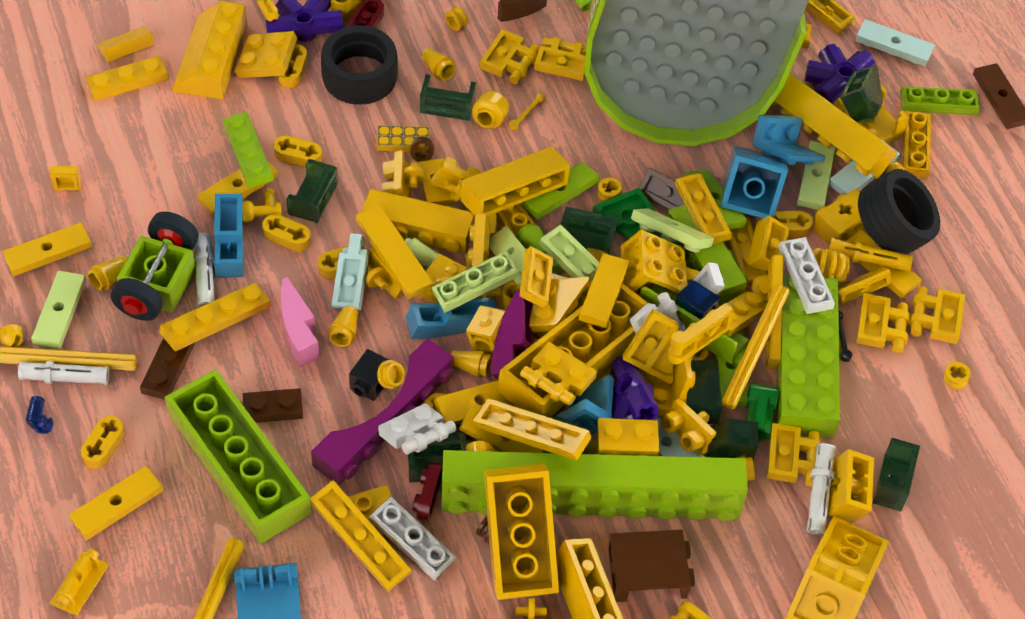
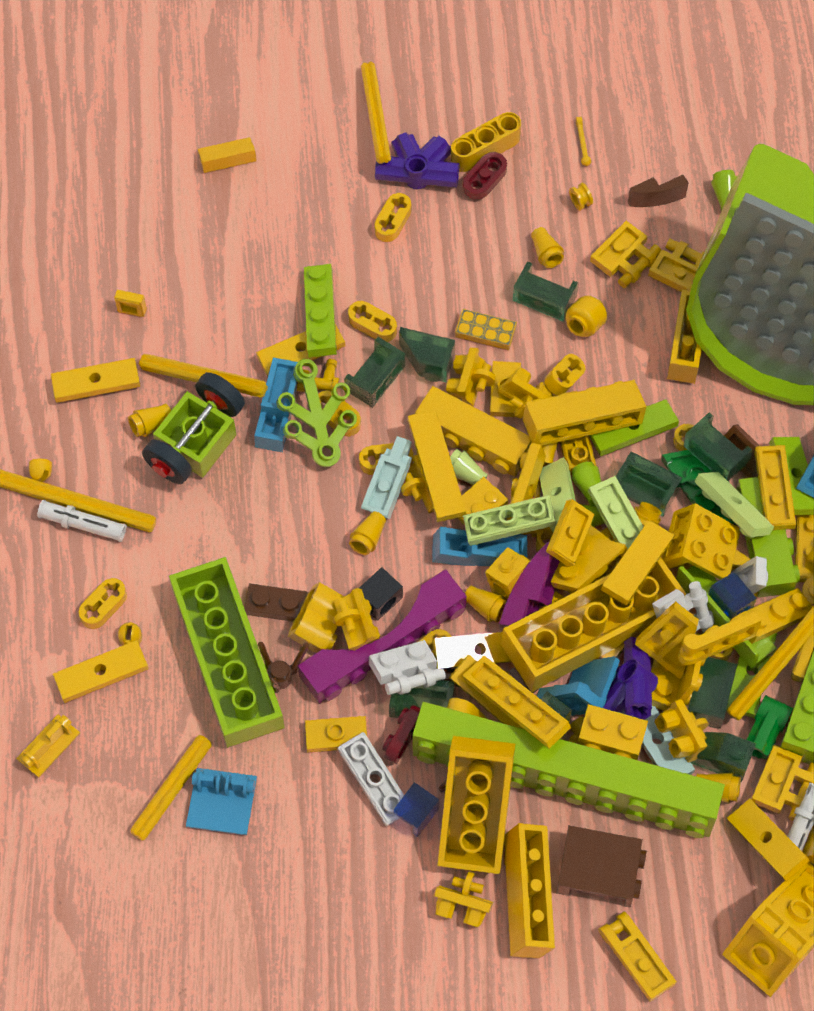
camera: 20 degrees right, 10 degrees up
(35, 418) = (45, 563): clear blue arm -> none
(58, 309) = (100, 437): yellowish green tile -> none
(127, 78) = (219, 196): yellow plate -> none
(129, 462) = (135, 633): none -> yellow hinge
(139, 223) = (193, 373): none -> yellow axle
(165, 370) = (188, 528): reddish brown plate -> none
(204, 269) = (245, 429): white pin -> none
(212, 51) = (313, 183): yellow slope -> none
(214, 316) = (241, 494): yellow plate -> none
(266, 54) = (367, 200): yellow plate -> none
(268, 235) = (316, 416): none -> lime plant
(294, 460) = (279, 671): none -> reddish brown plant
(298, 325) = (321, 521): bright pink slope -> none
(319, 407) = (316, 619): none -> yellow brick
(356, 166) = (428, 353): none -> clear green slope
(356, 397) = (355, 619): none -> yellow hips
(360, 536) = (323, 765): yellow plate -> none
(361, 42) = (457, 205): black tyre -> none
(390, 374) = (397, 601): yellow plate -> none
(415, 145) = (494, 353): reddish brown bush -> none
(462, 553) = (417, 808): none -> clear blue panel
(486, 157) = (568, 378): none -> yellow beam
(514, 124) = (608, 336): yellow hinge -> none
(562, 368) = (567, 643): yellow plate -> none
(586, 114) = (685, 350): none -> yellow brick
(638, 191) = (715, 449): none -> clear green panel
(796, 503) = (758, 830): none -> yellow tile

